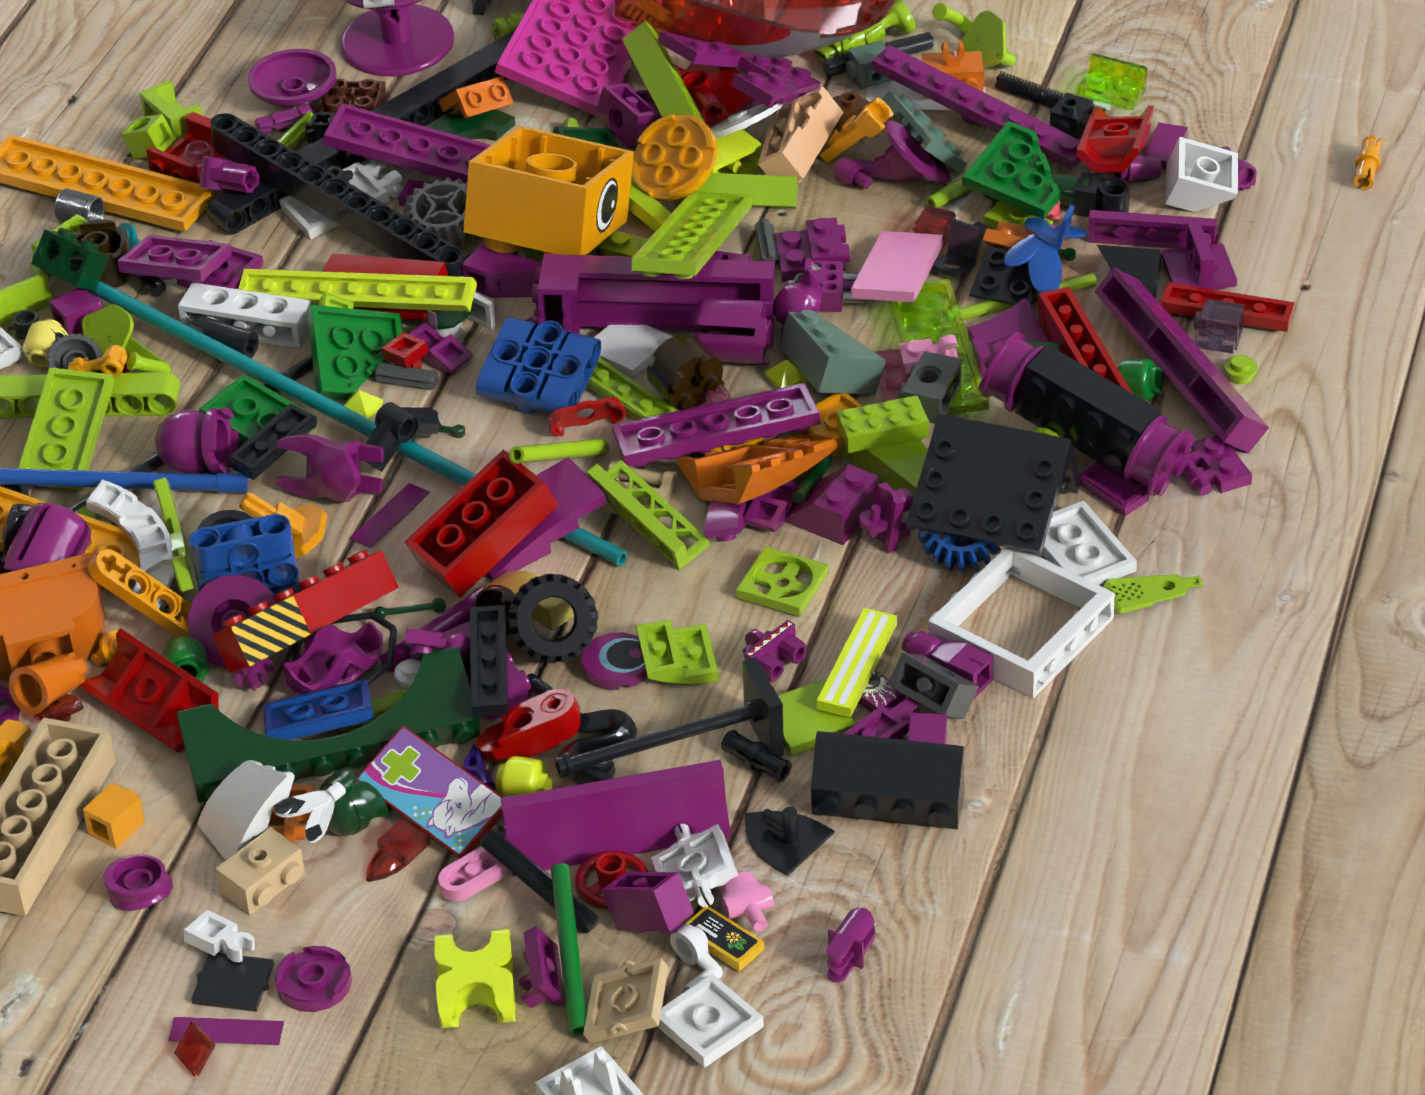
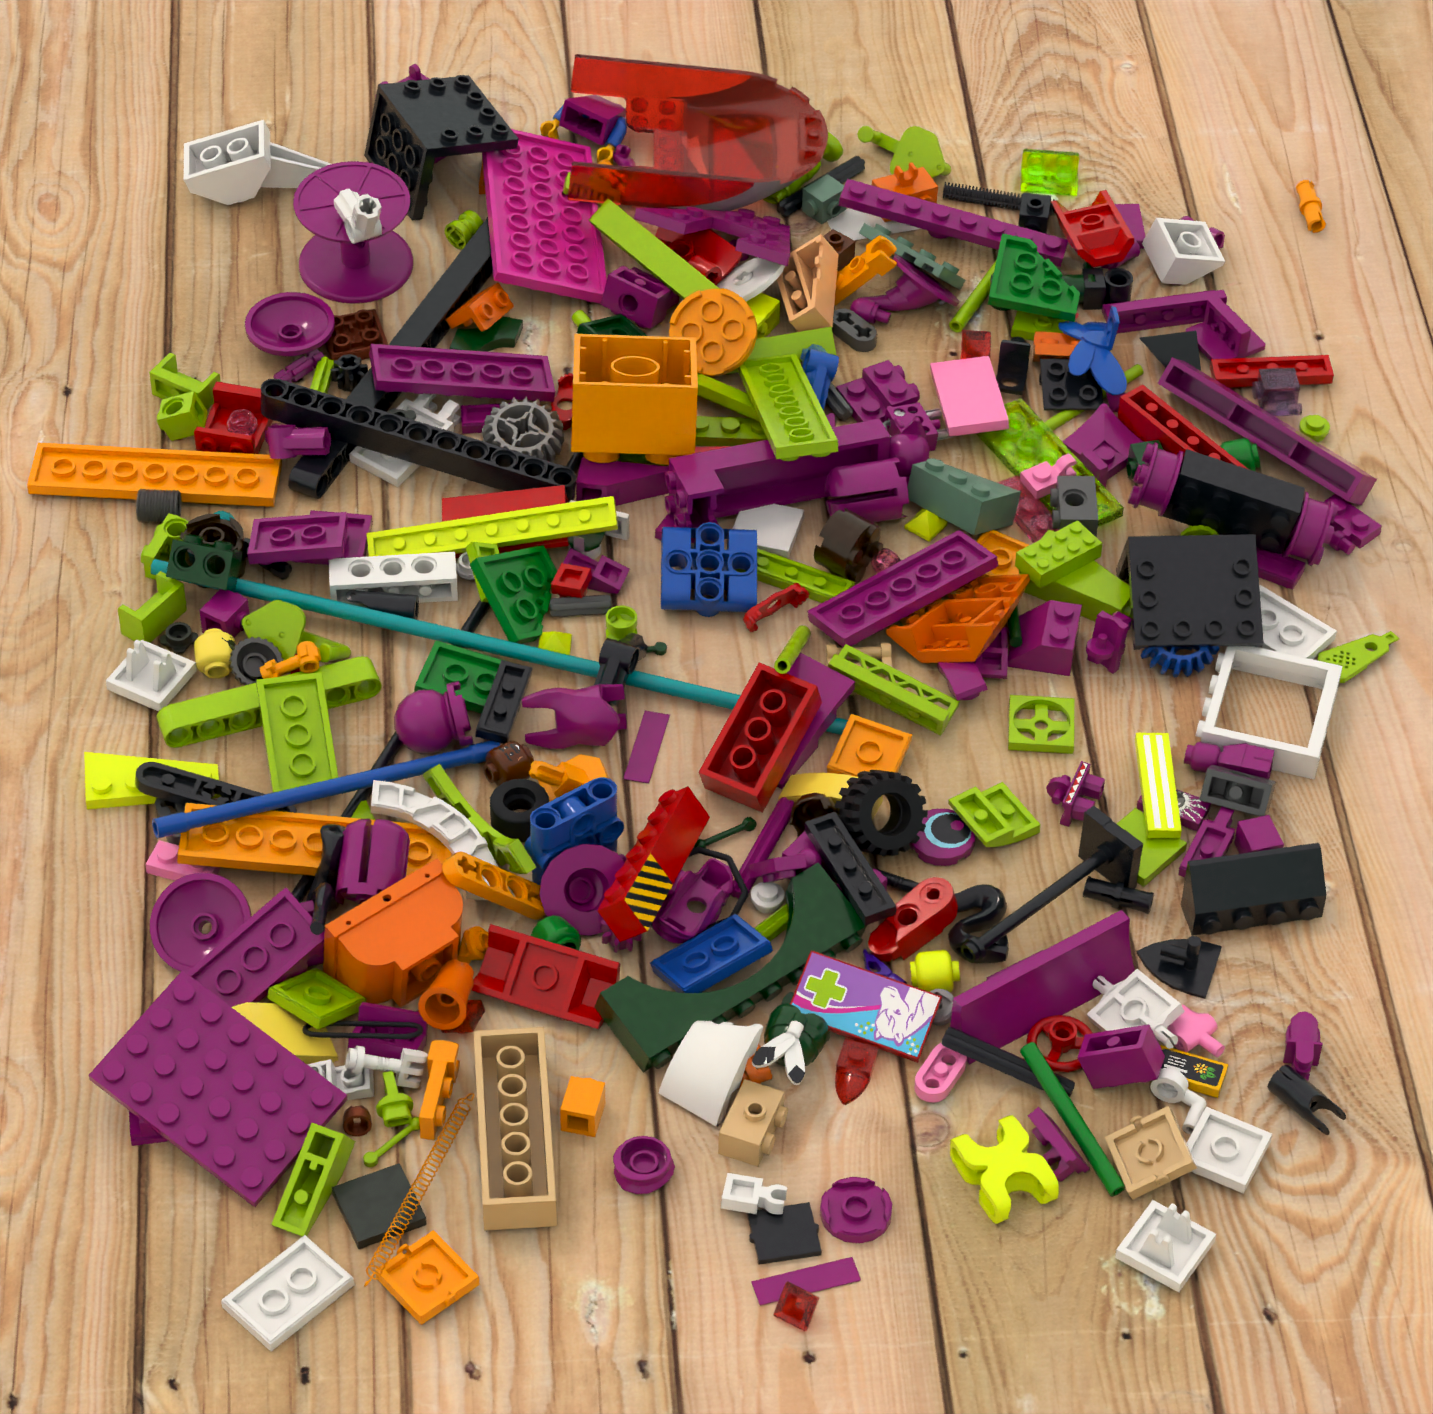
camera: 25 degrees left, 5 degrees up
(238, 487) = (508, 763): none -> reddish brown head
(429, 395) = (620, 622): none -> lime wheel
(595, 563) = (868, 747): none -> light orange tile
(756, 213) = (820, 370): none -> blue piece
(818, 988) = (1302, 1096): none -> black piece
(827, 187) = (854, 330): none -> dark grey beam

